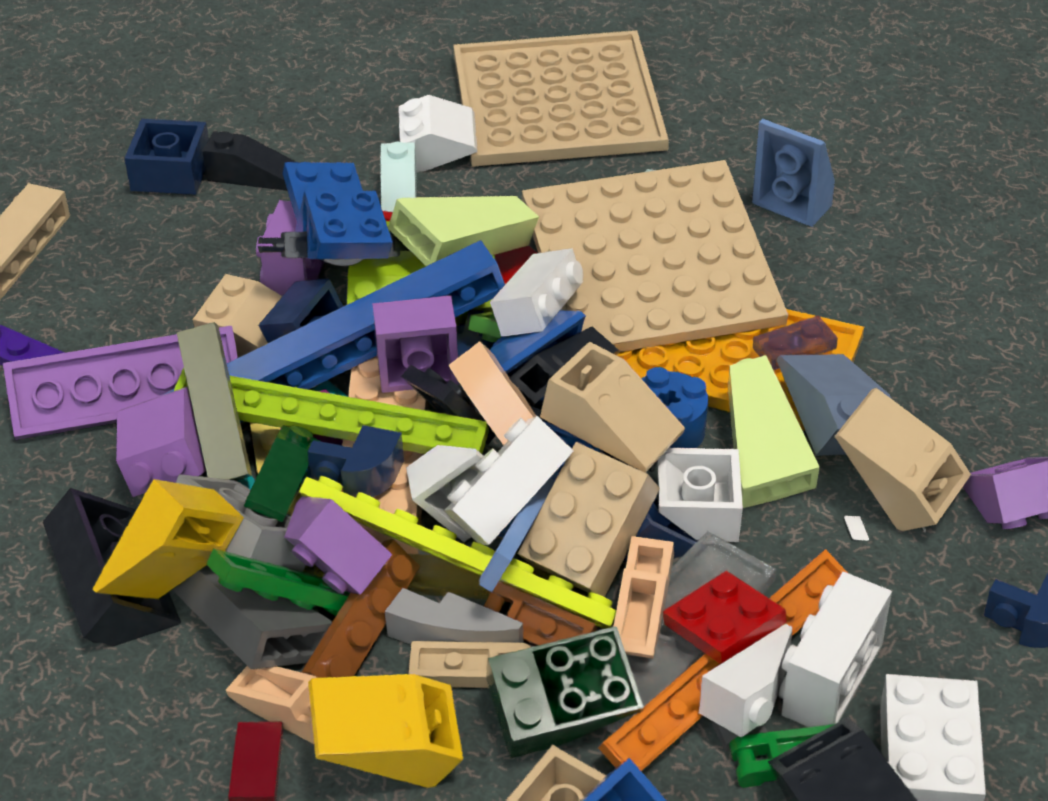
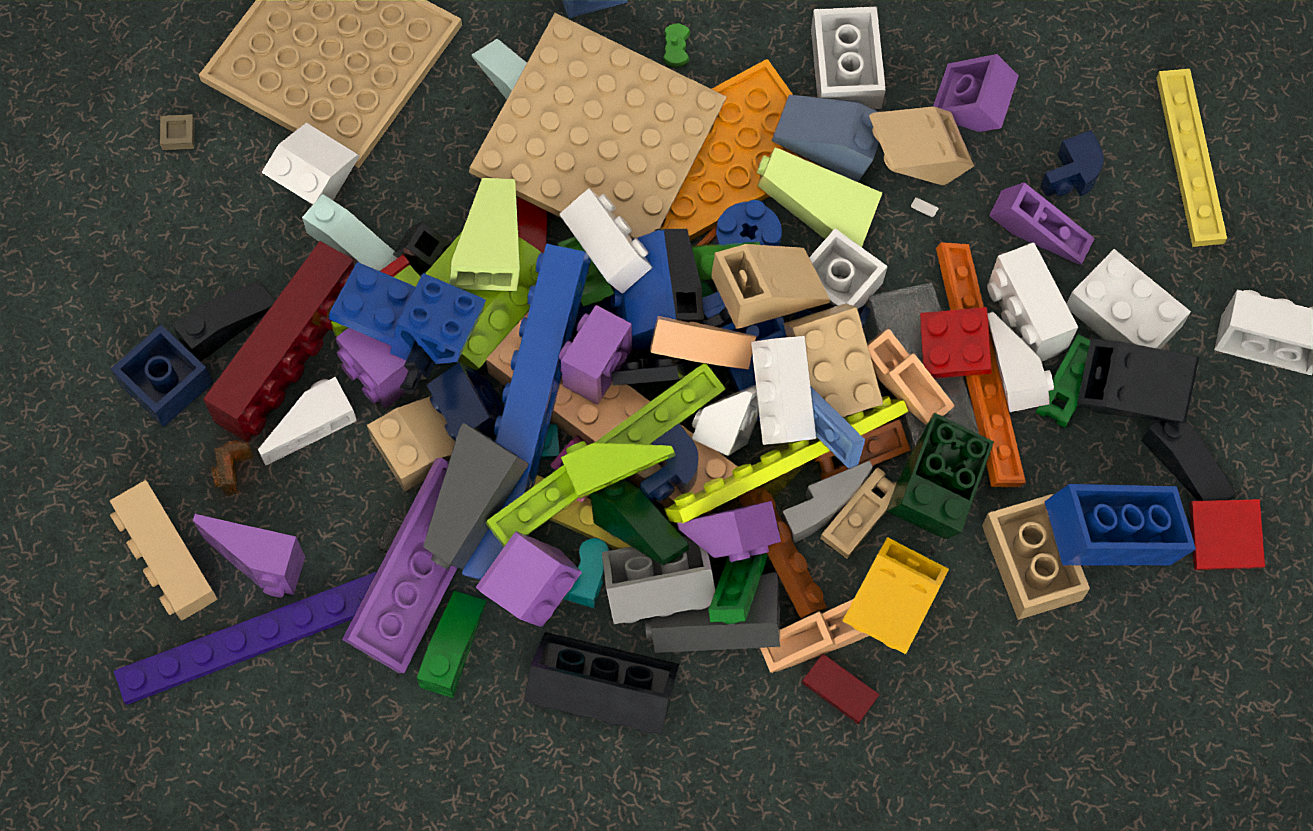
camera: 55 degrees left, 25 degrees up
(46, 283) = (262, 555): none -> medium lavender slope
(58, 448) = (451, 644): none -> green slope
(122, 234) = (224, 473): none -> clear orange bracket
(168, 540) = (668, 630): yellow slope -> none
(204, 252) = (313, 416): none -> white slope
(213, 403) = (542, 523): tile -> none
(228, 193) = (279, 345): none -> dark red brick
(246, 338) = (472, 491): none -> dark grey slope
(301, 399) = (603, 464): none -> lime slope
(394, 63) = (177, 132): none -> dark tan plate
(801, 338) = (751, 113): plate -> none
(808, 273) = (675, 45): none -> bright green piece
(936, 369) = (848, 55): none -> white brick
(942, 617) = (1038, 221): none -> medium lavender slope

